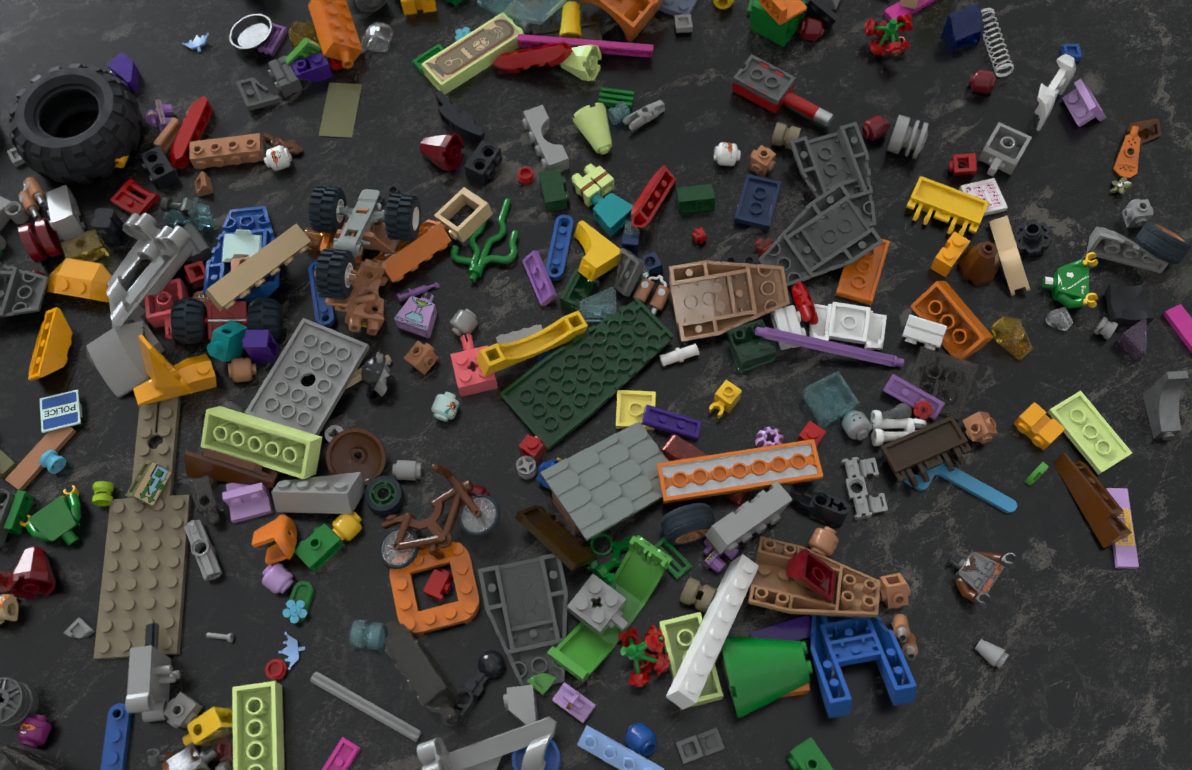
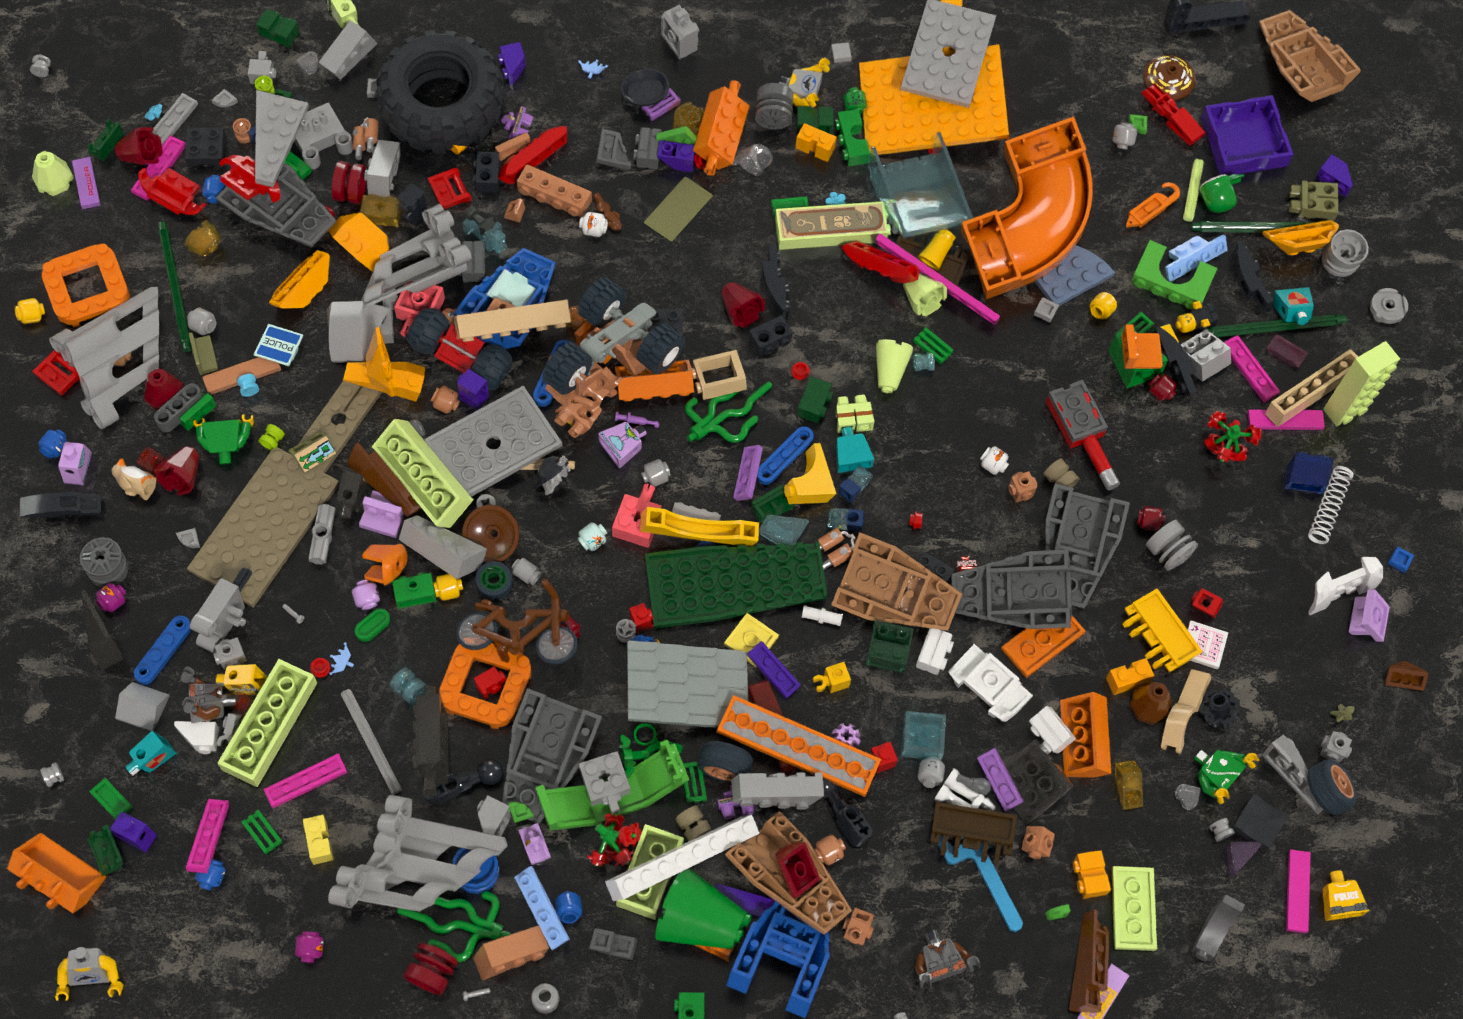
camera: 25 degrees right, 0 degrees up
(195, 274) = (458, 291): red brick -> none
(227, 341) = (447, 368): teal torso -> none
(295, 610) = (363, 630): medium azure plant -> none
(421, 357) = (600, 481): nougat brick -> none
(552, 155) = (843, 329): light grey arch -> none
(555, 537) = (608, 702): dark brown hinge -> none
(628, 272) = (826, 515): dark grey wing -> none
(644, 115) = (946, 378): light grey hinge -> none
(652, 197) = (896, 460): red brick -> none
(695, 199) = (936, 484): dark green hinge -> none
(757, 201) = (991, 521): dark blue plate -> none
(804, 303) = (964, 639): red hinge -> none
(828, 346) = (956, 690): medium lavender piece -> none
(863, 503) = (887, 839): light grey piece -> none
(907, 639) = (842, 973): nougat piece -> none
(928, 410) = (993, 795): red plate -> none
(982, 81) = (1288, 536): dark red head -> none
(1004, 149) = (1255, 612): light grey hinge -> none
(1126, 160) = (1369, 694): orange piece -> none

